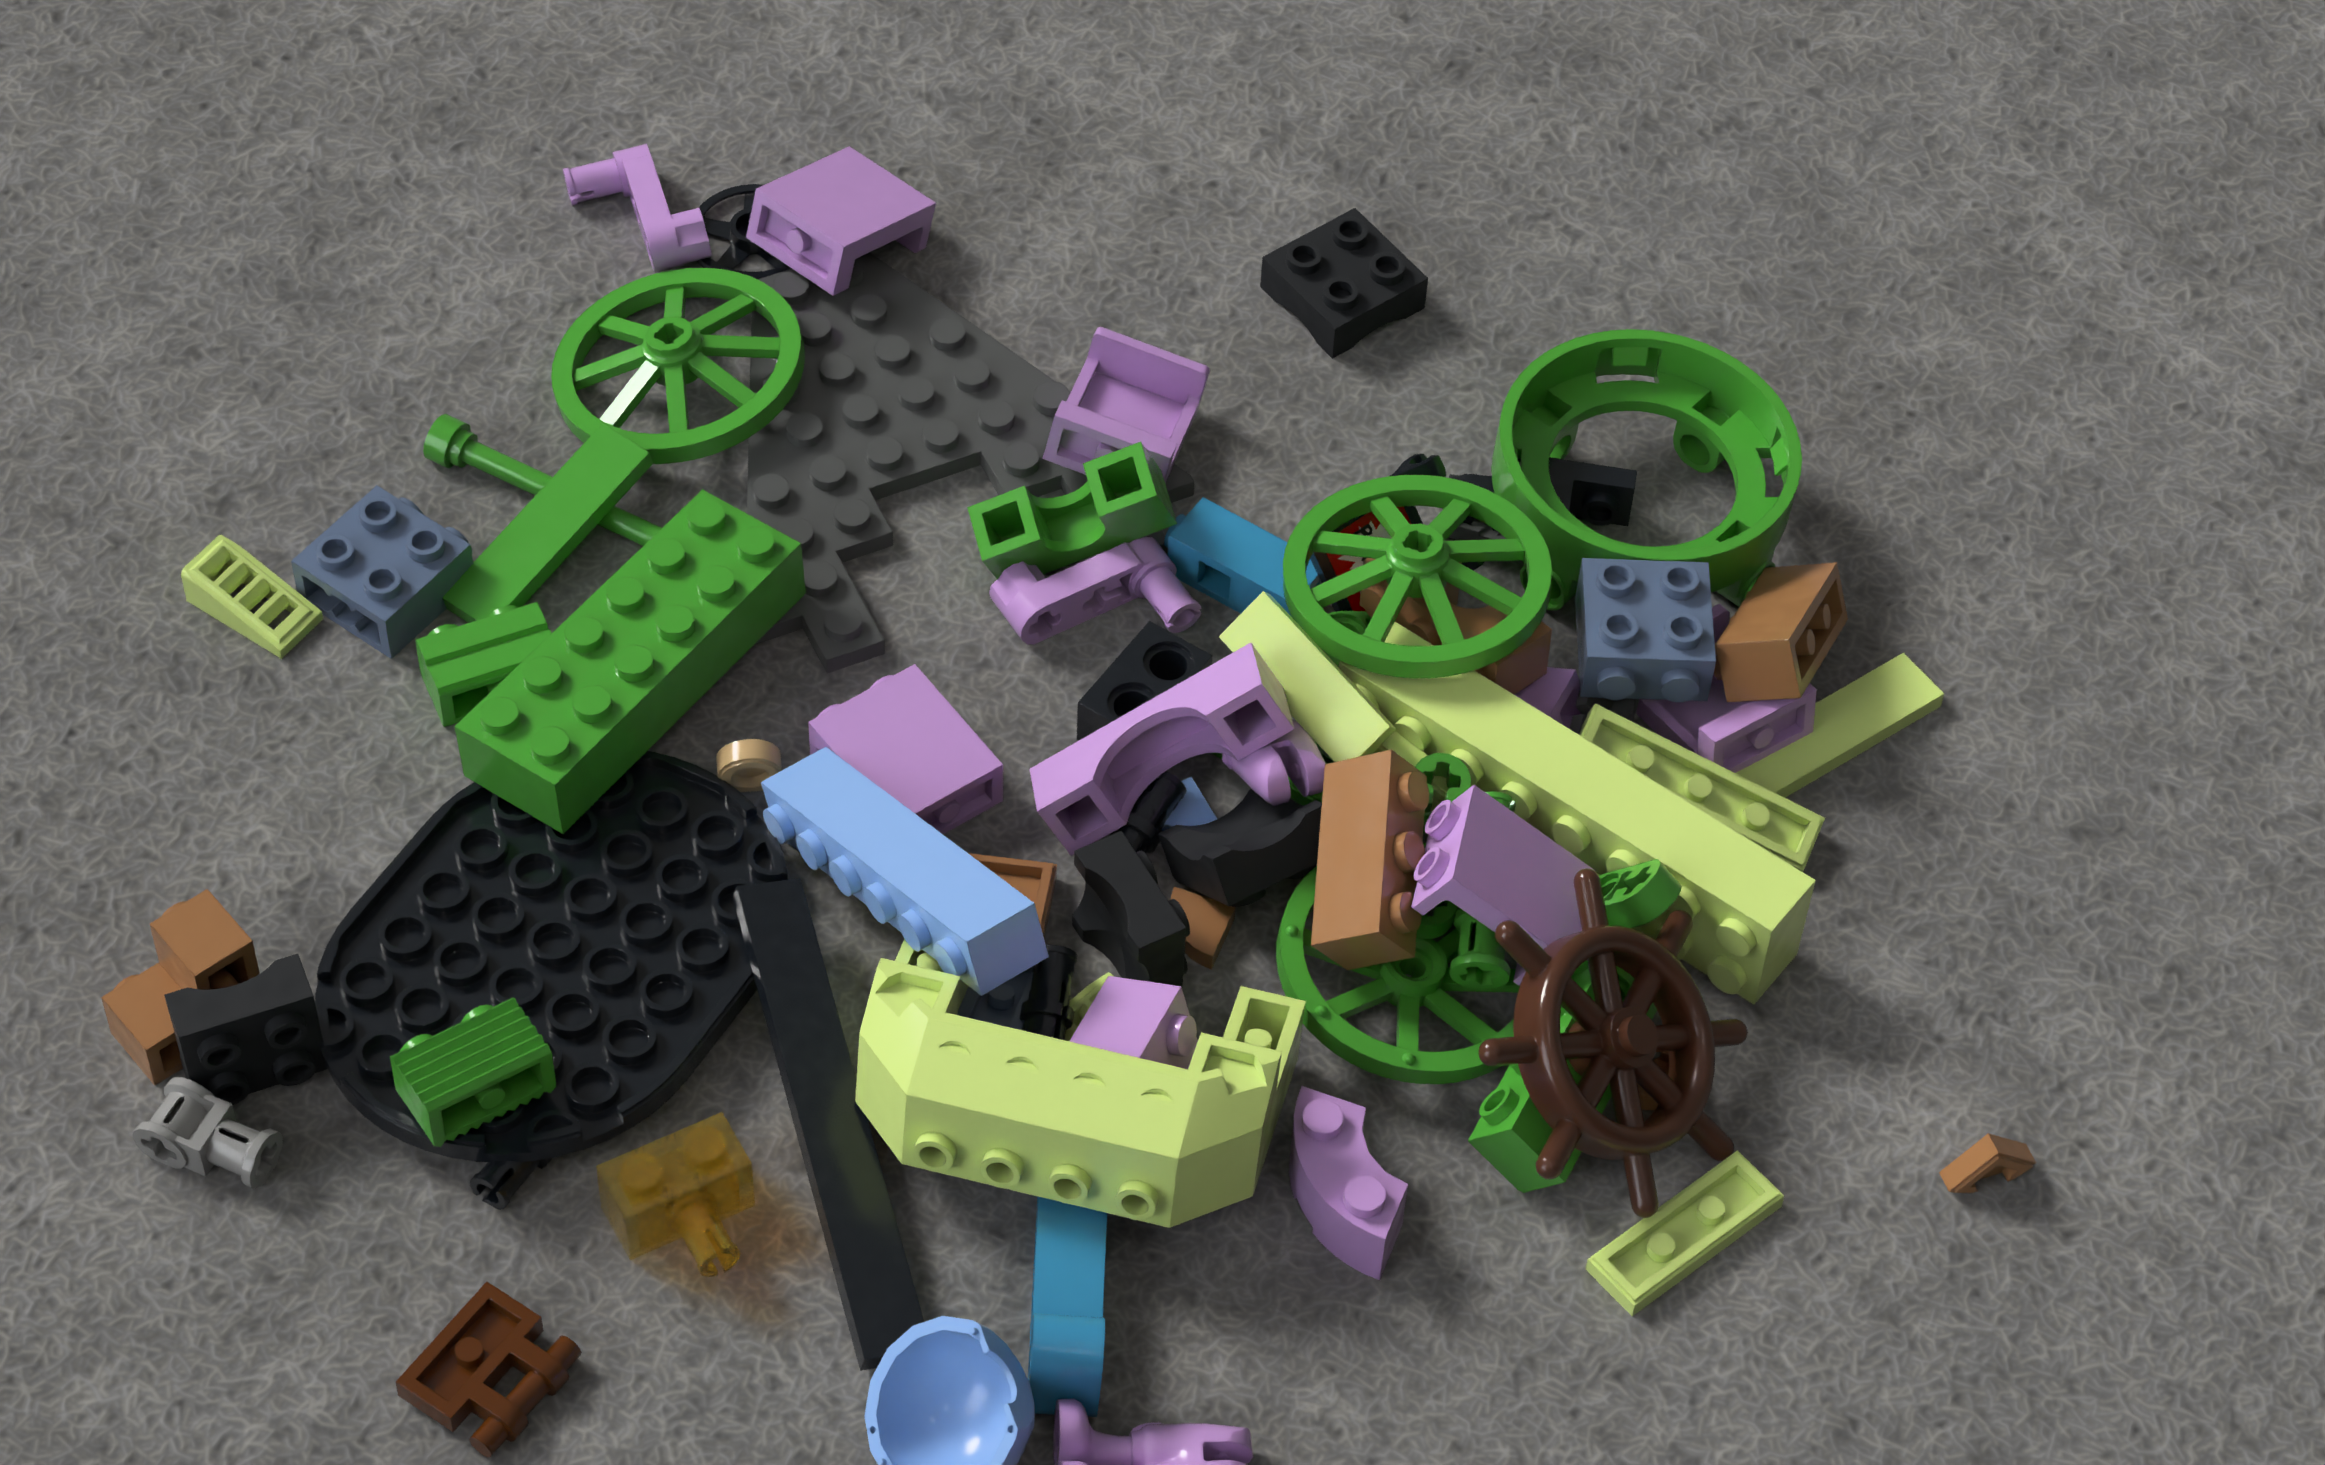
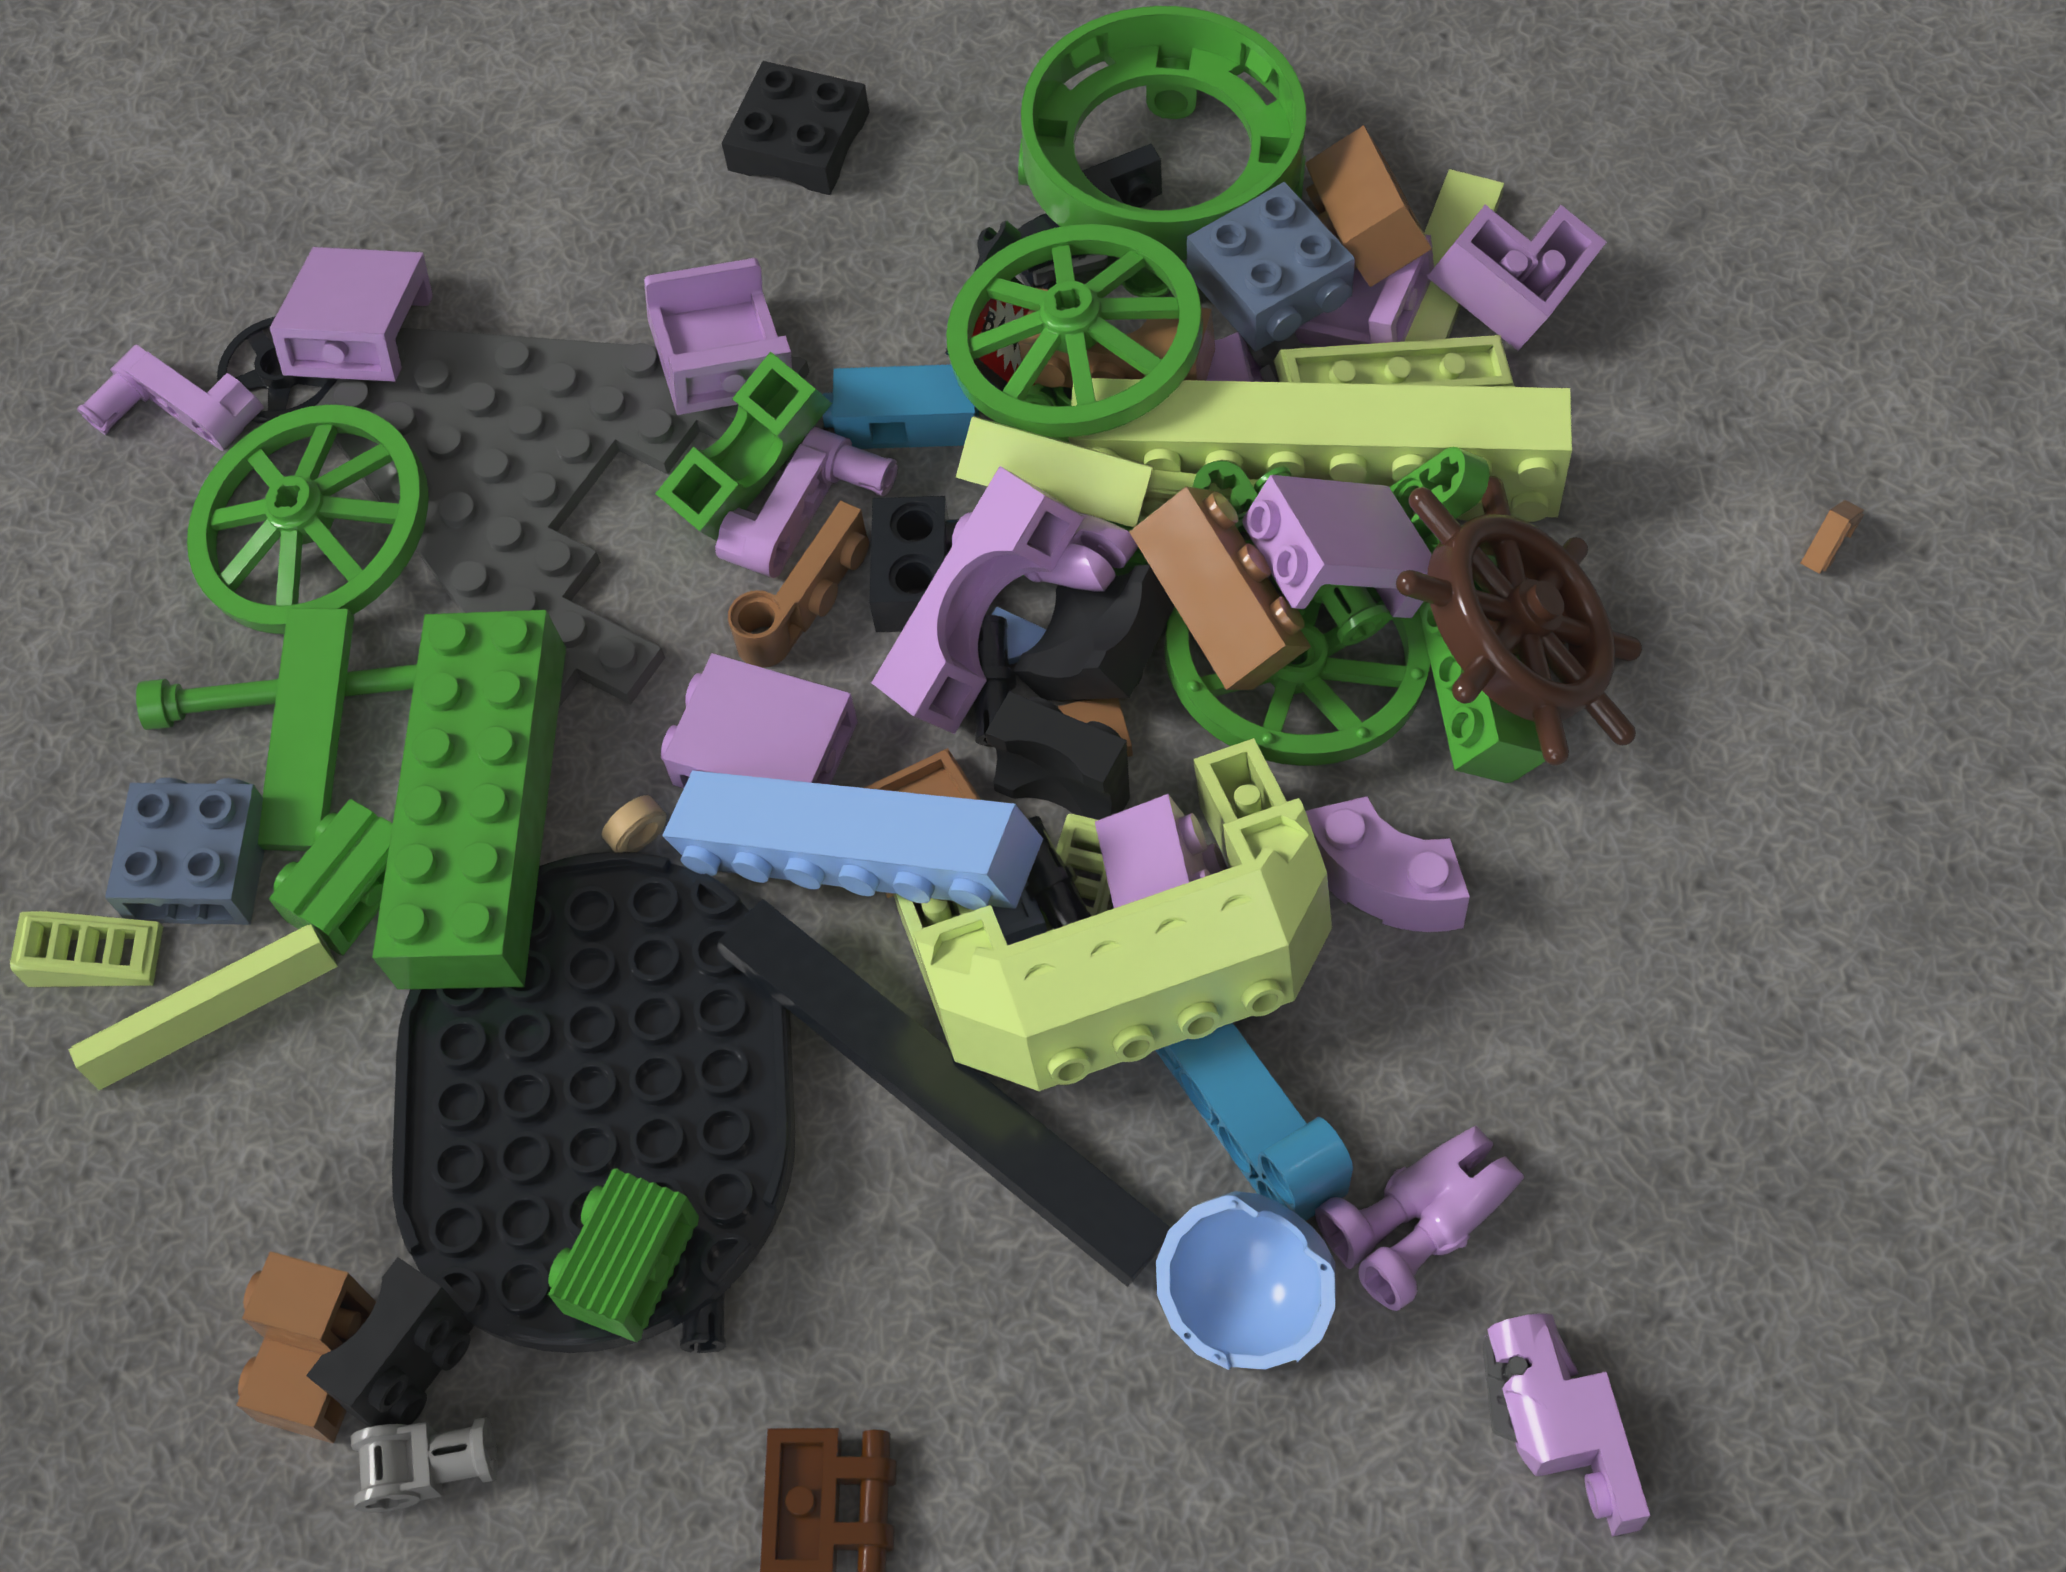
camera: 25 degrees left, 10 degrees up
(305, 695) = (202, 1007): none -> yellowish green tile
(680, 1191) = (868, 1235): clear yellow brick -> none
(988, 677) = (805, 593): none -> medium nougat plate
(1684, 1233) = (1664, 722): yellowish green tile -> none
(1870, 779) = (1515, 280): none -> lavender brick

